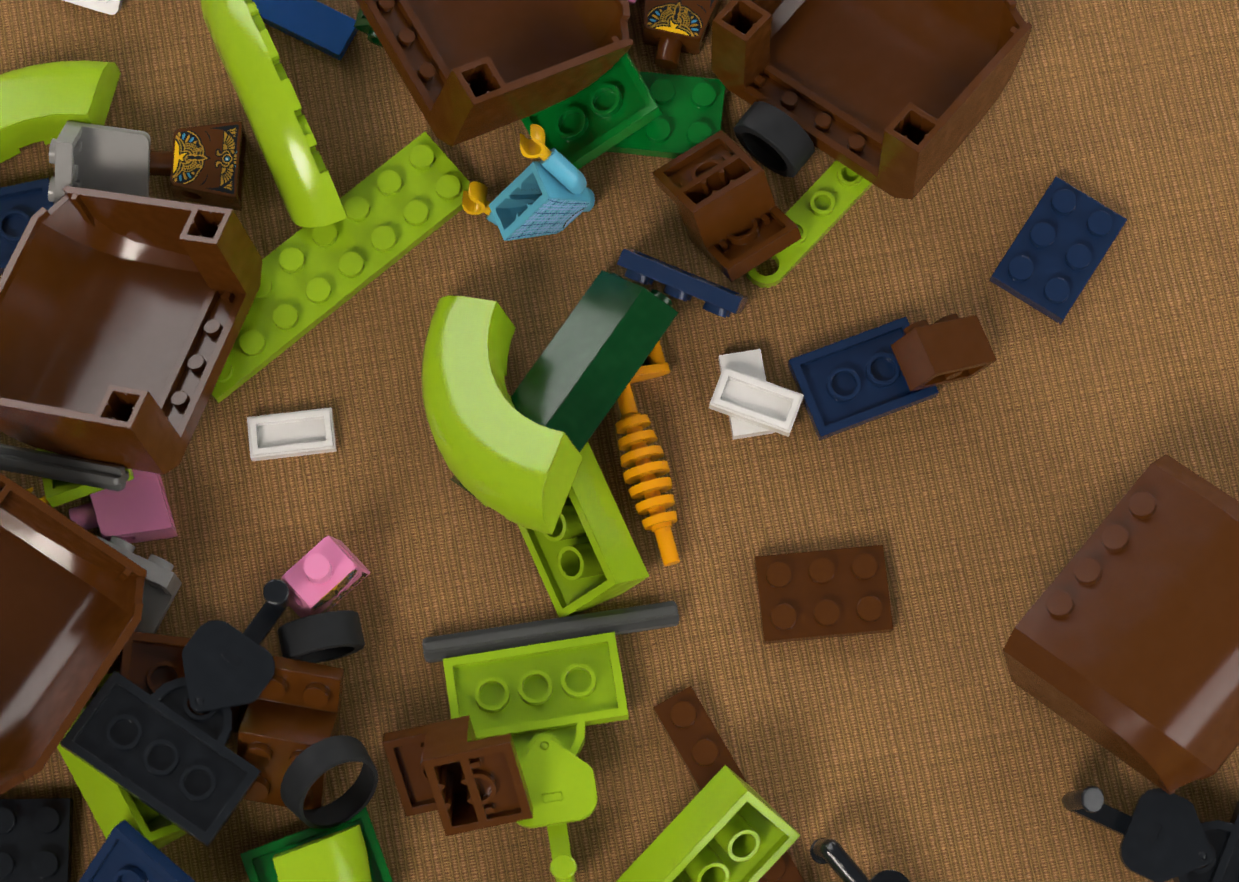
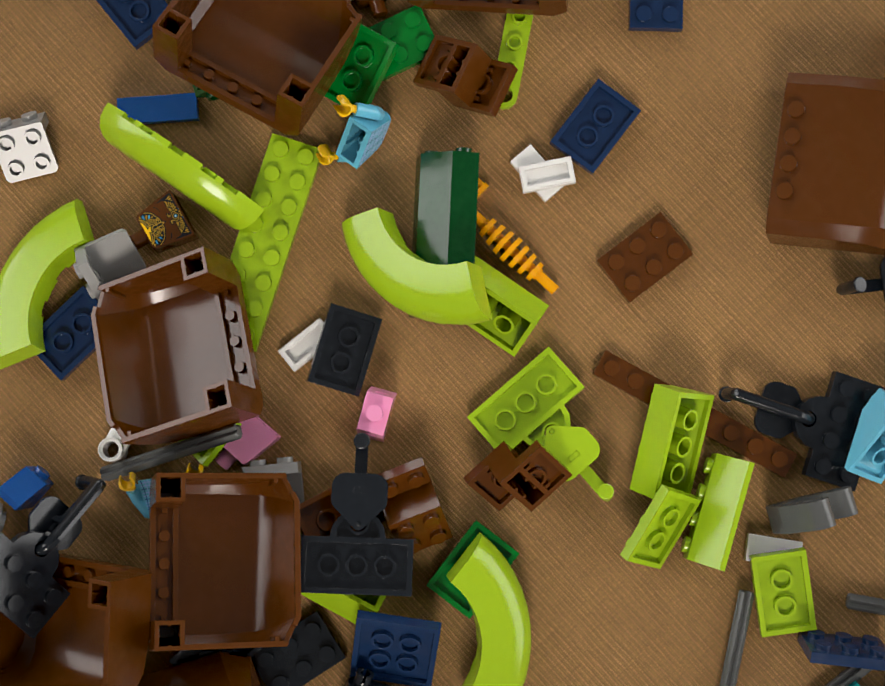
camera: 25 degrees left, 10 degrees up
(315, 762) = (441, 518): black tyre -> none
(322, 636) = (396, 446): black tyre -> none
(335, 468) = (344, 349): none -> black plate
(618, 620) = (513, 366): dark grey axle -> none
(681, 283) = (468, 134): dark blue plate -> none
(774, 139) = (468, 21): black tyre -> none
(942, 351) = (631, 87): reddish brown brick -> none

